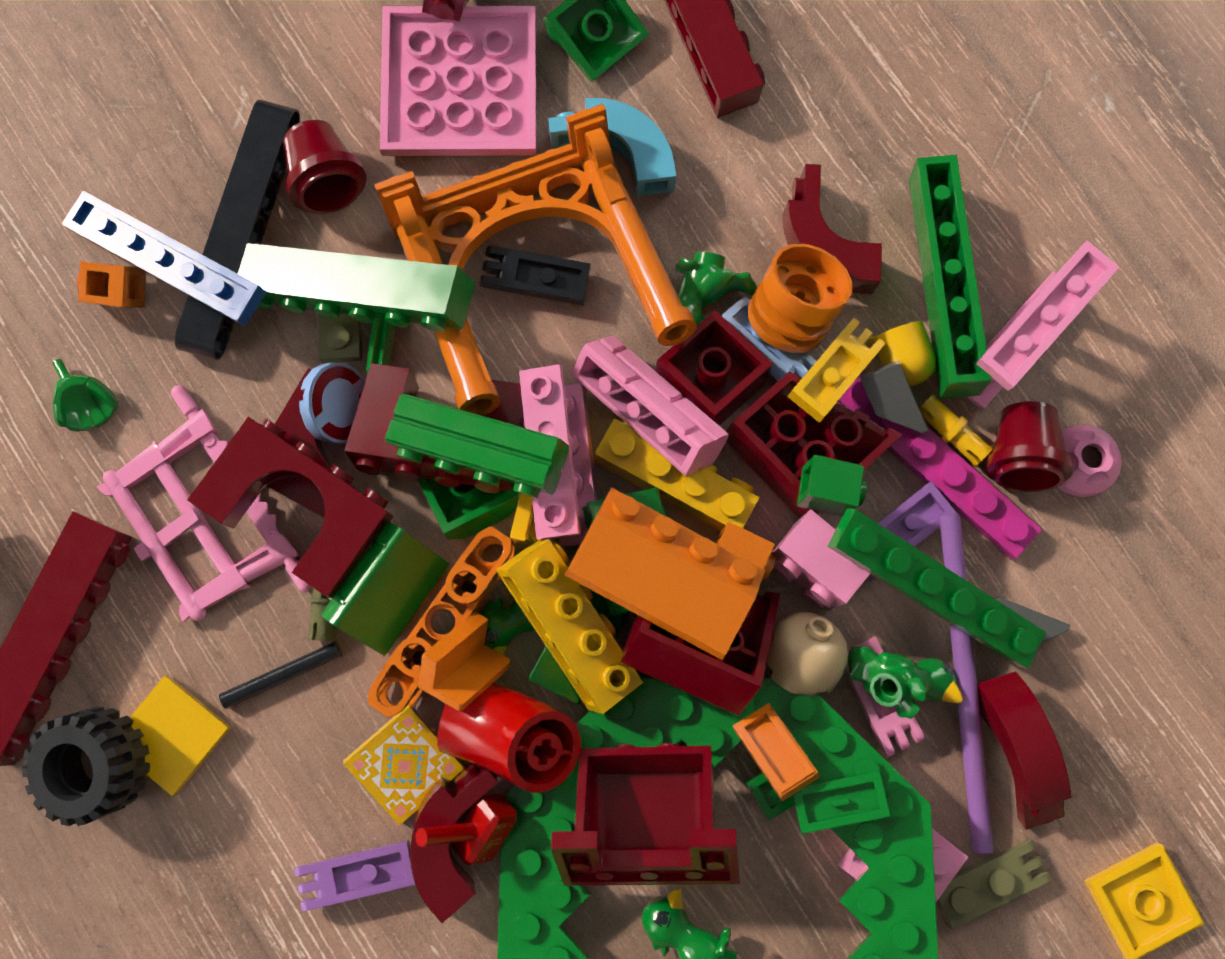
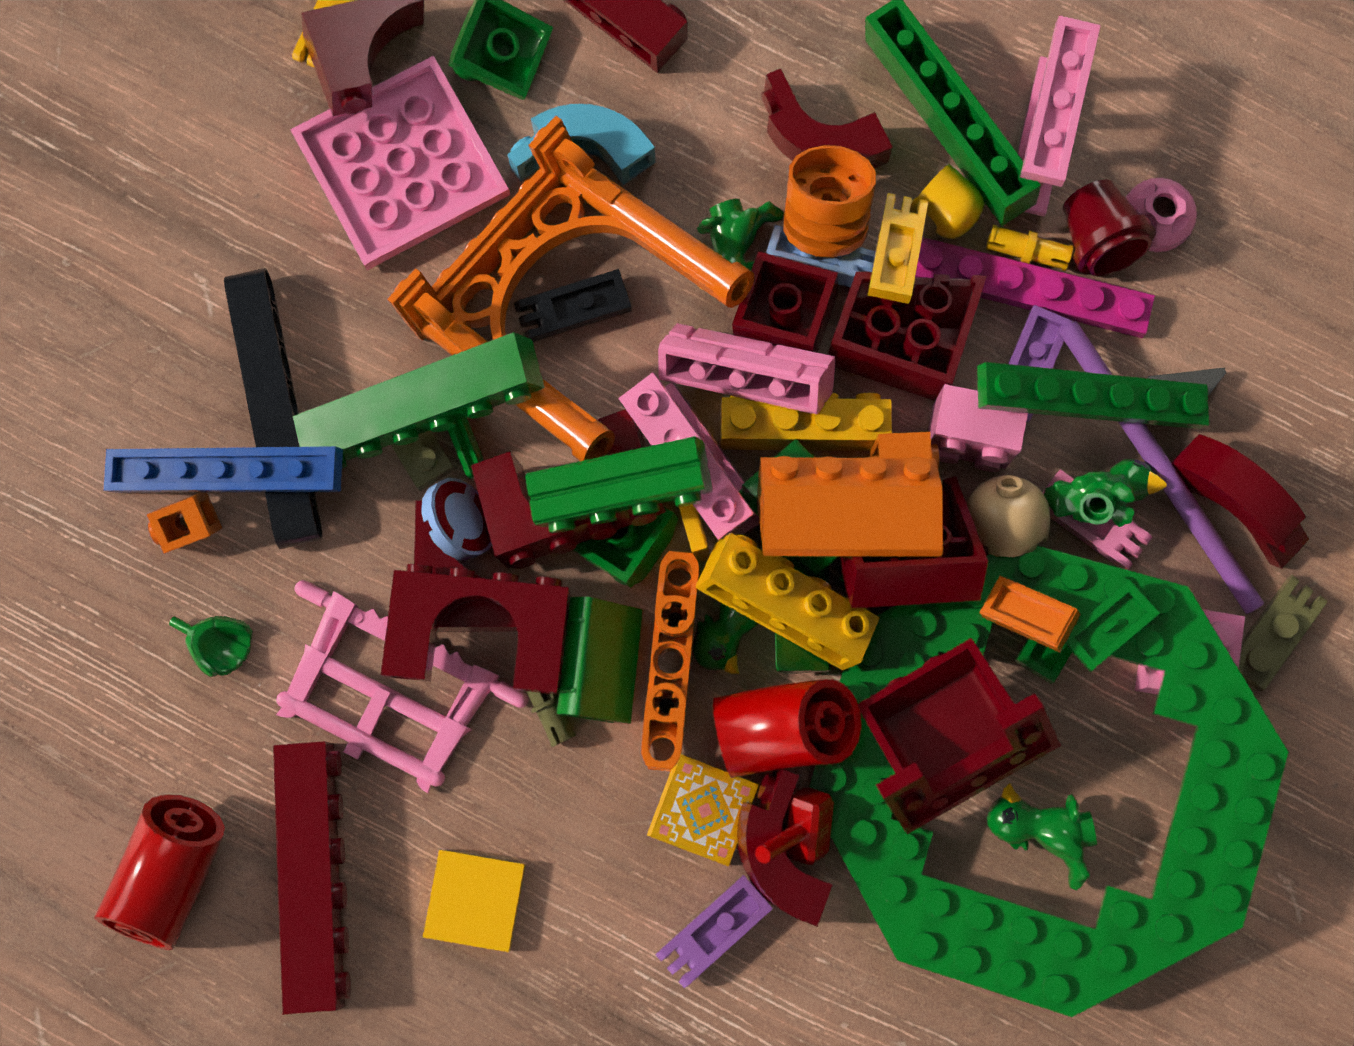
camera: 20 degrees left, 0 degrees up
(57, 770) = (396, 989): black tyre -> none
(280, 675) = (543, 793): black bar -> none
(321, 169) = (321, 311): dark red piece -> none
(461, 664) = (711, 691): orange panel -> none
(831, 486) = (951, 354): green brick -> none
(893, 396) = (960, 245): dark grey tile -> none

